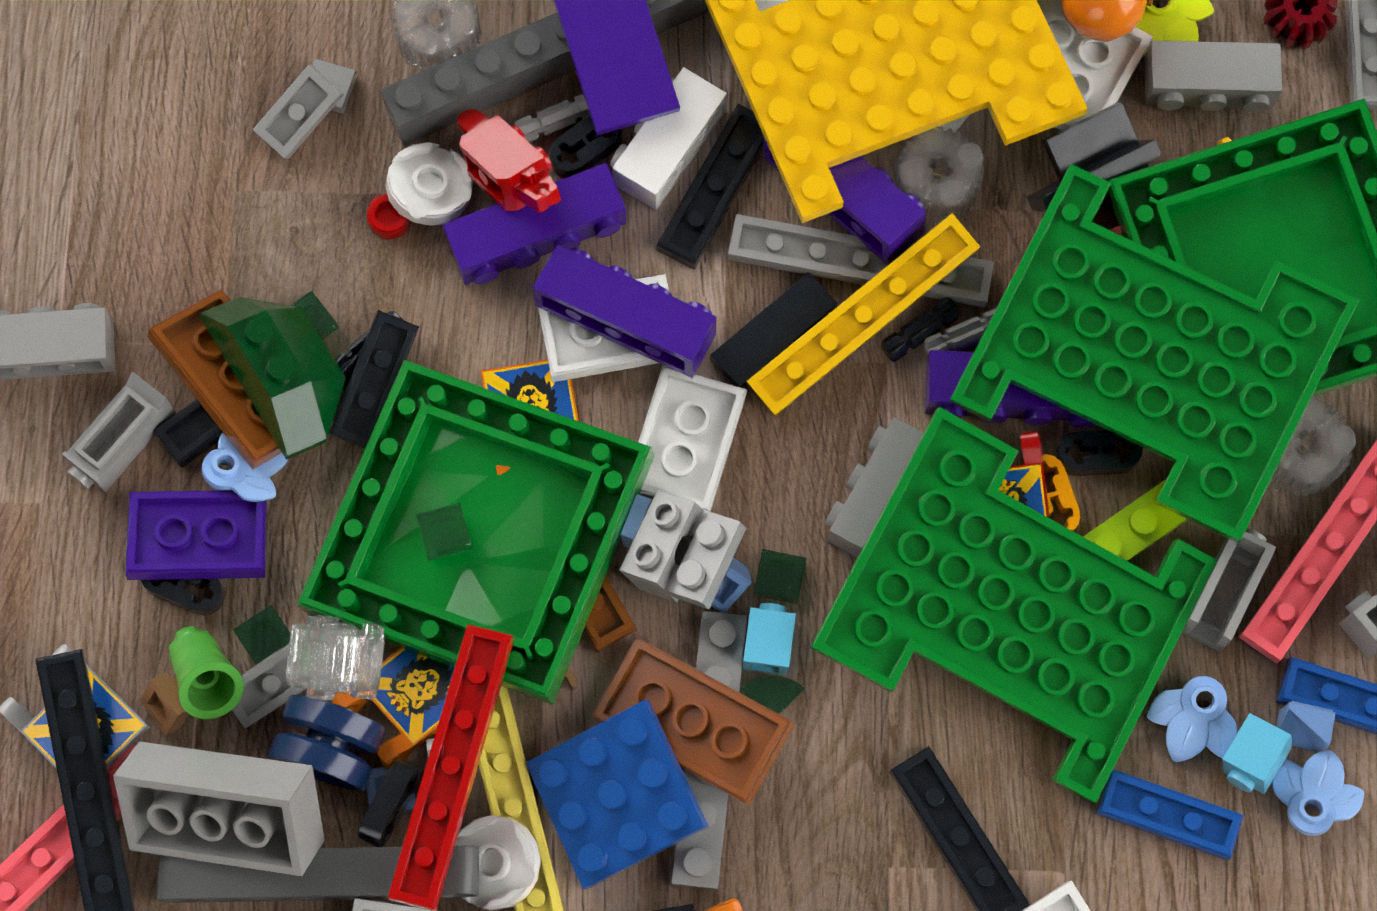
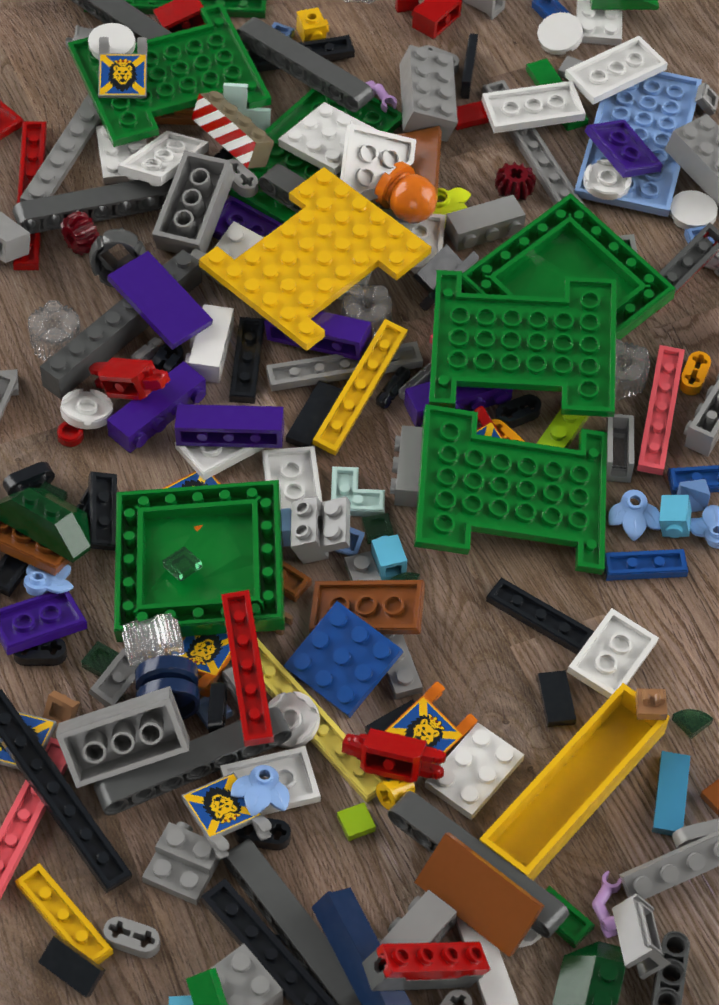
camera: 25 degrees left, 20 degrees down
(205, 678) = (81, 679): bright green plant -> none
(288, 279) = (28, 477): none -> black beam
(759, 501) = (362, 501): none -> light aqua tile

